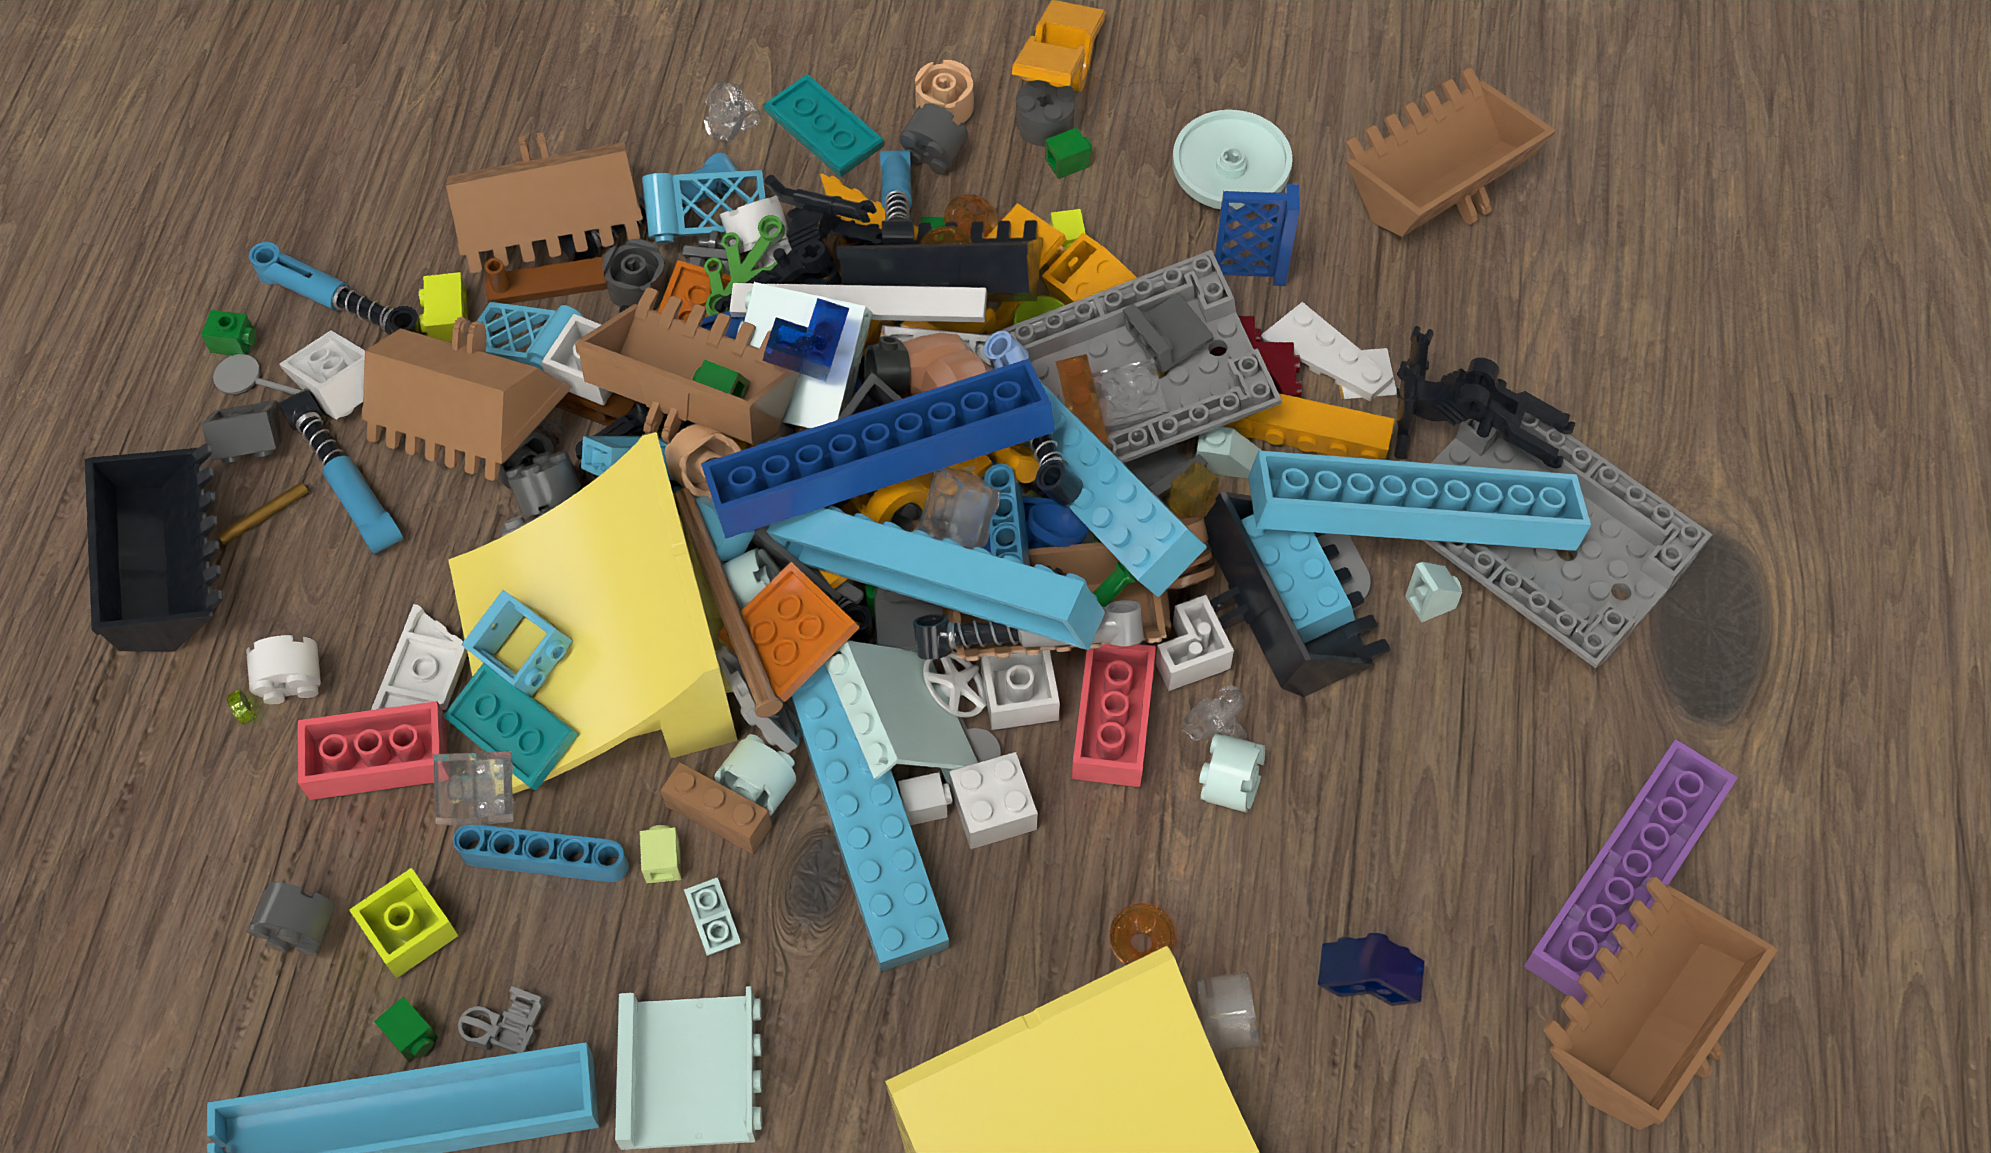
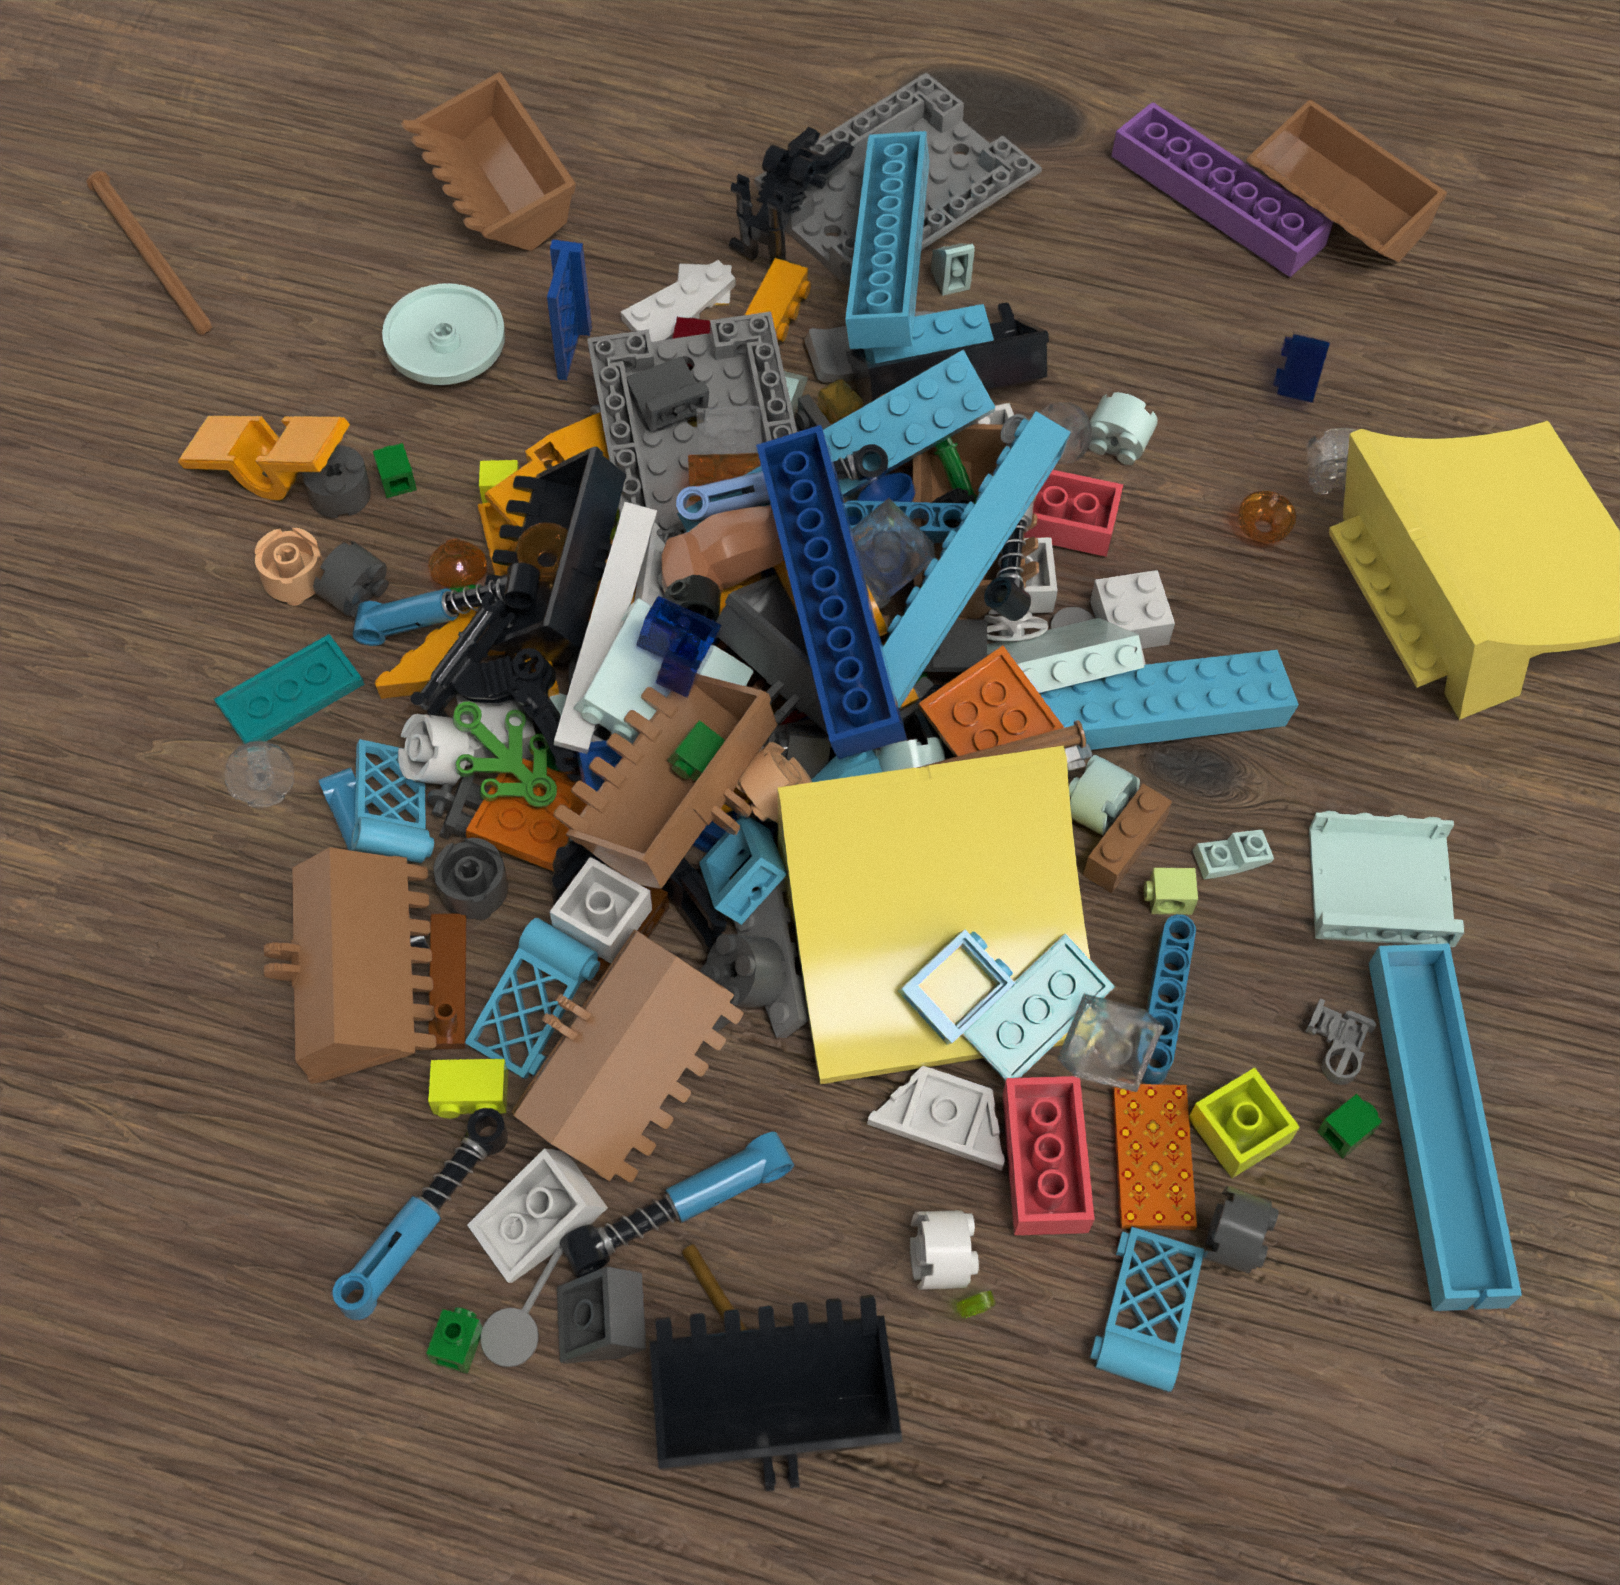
camera: 85 degrees left, 0 degrees up
(192, 832) = (1129, 1351): none -> medium azure piece
(378, 851) = (1154, 1158): none -> orange tile

